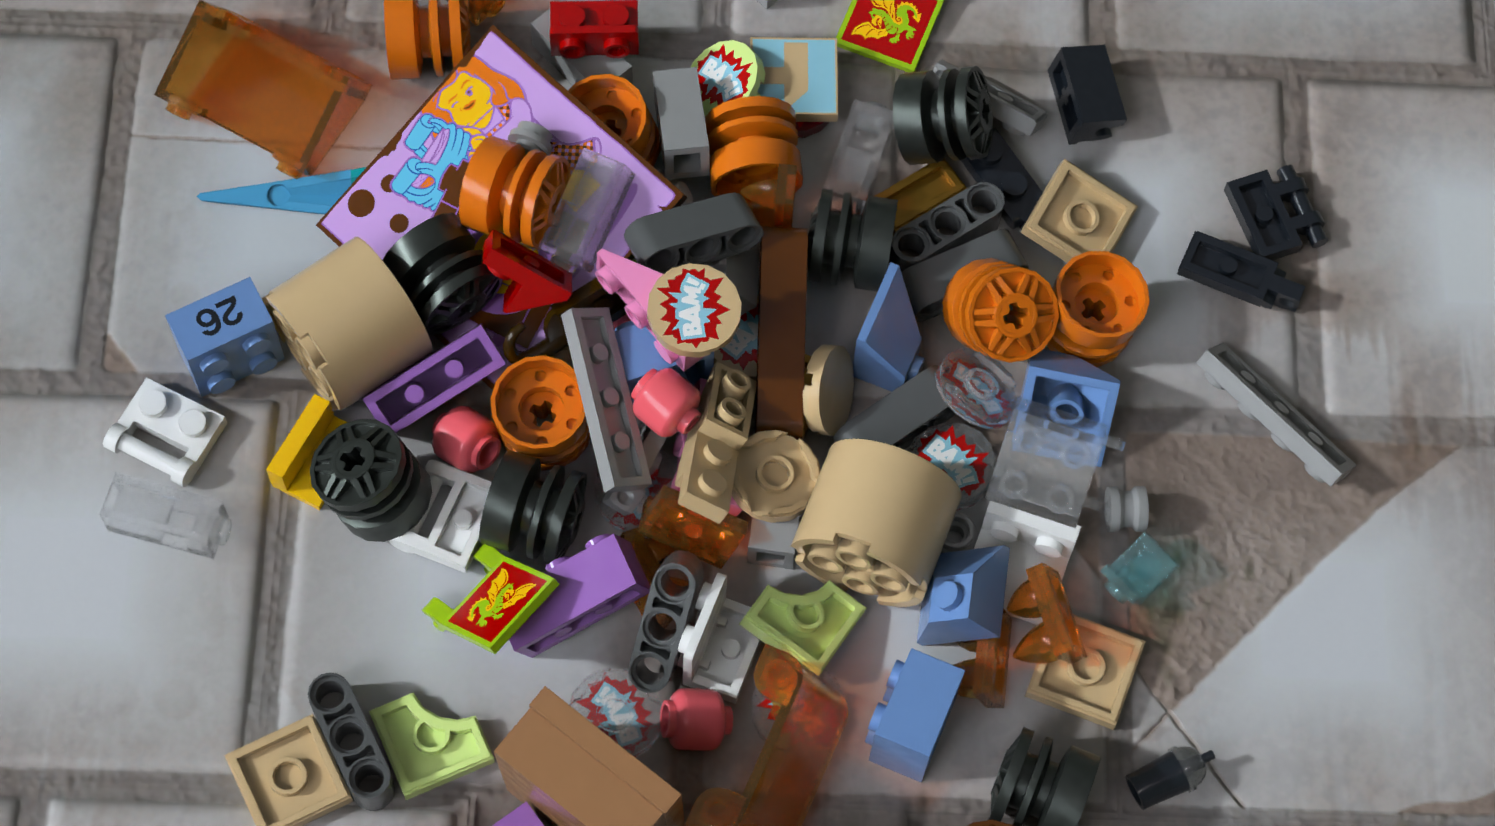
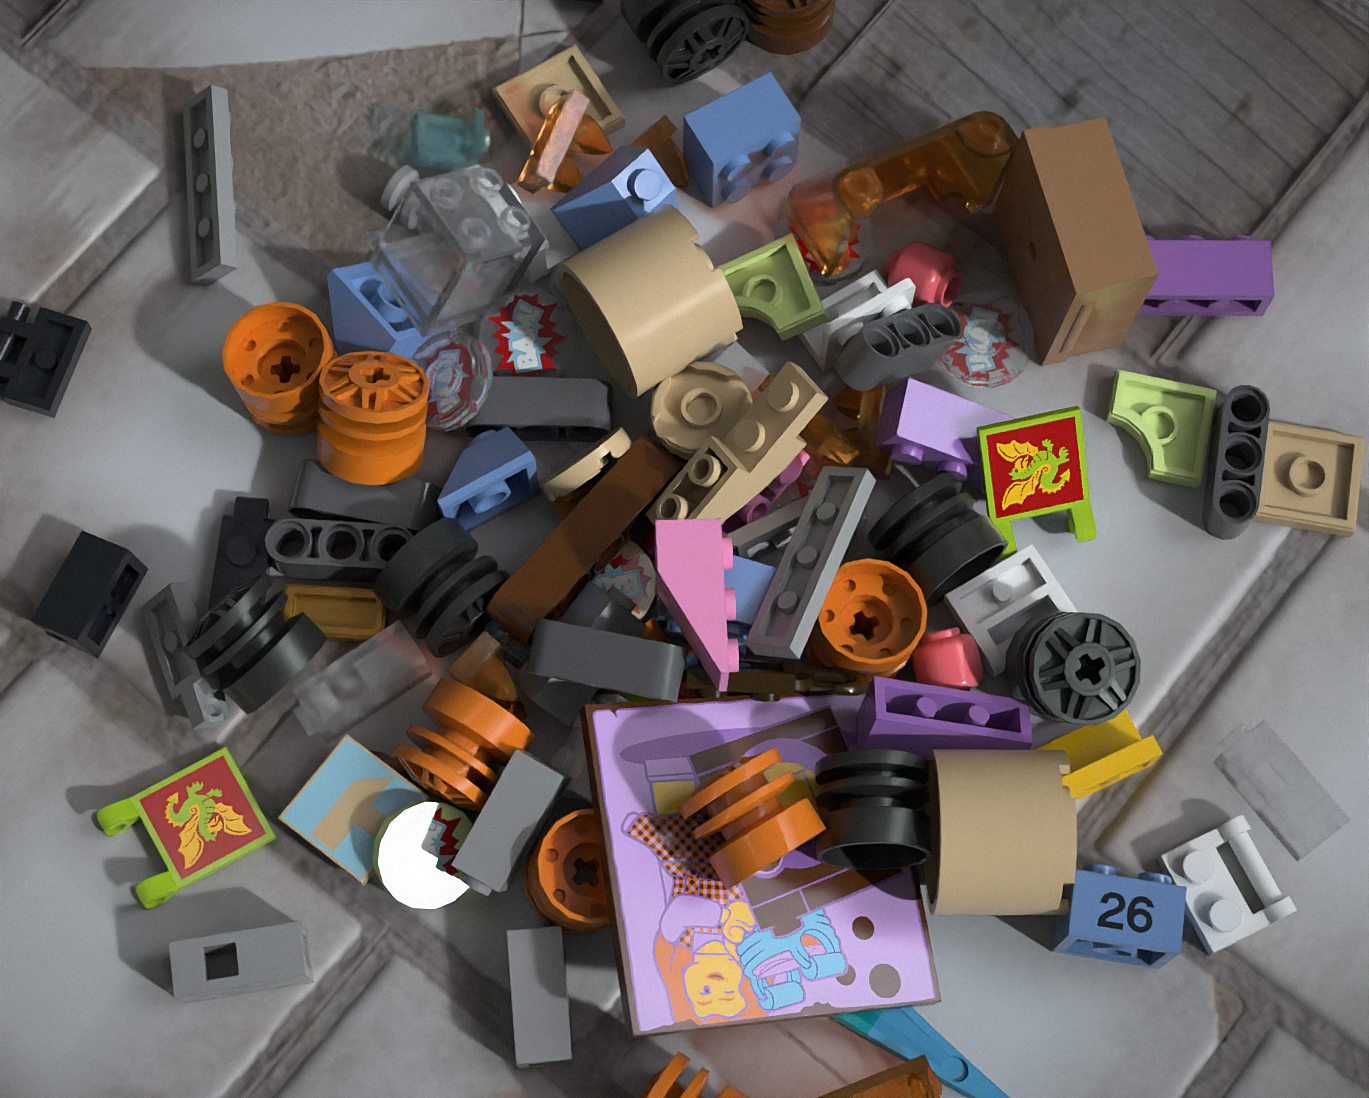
camera: 140 degrees left, 5 degrees up
(531, 137) = (691, 871): light grey plate -> none
(534, 277) = (800, 730): red slope -> none
(586, 211) = (688, 756): clear brick -> none
(594, 28) = (516, 993): red bracket -> none
(666, 402) = (758, 518): coral head -> none
(694, 310) = (682, 546): tile -> none
(1078, 214) = (211, 478): tan tile -> none
(1239, 273) = (121, 330): black hinge -> none

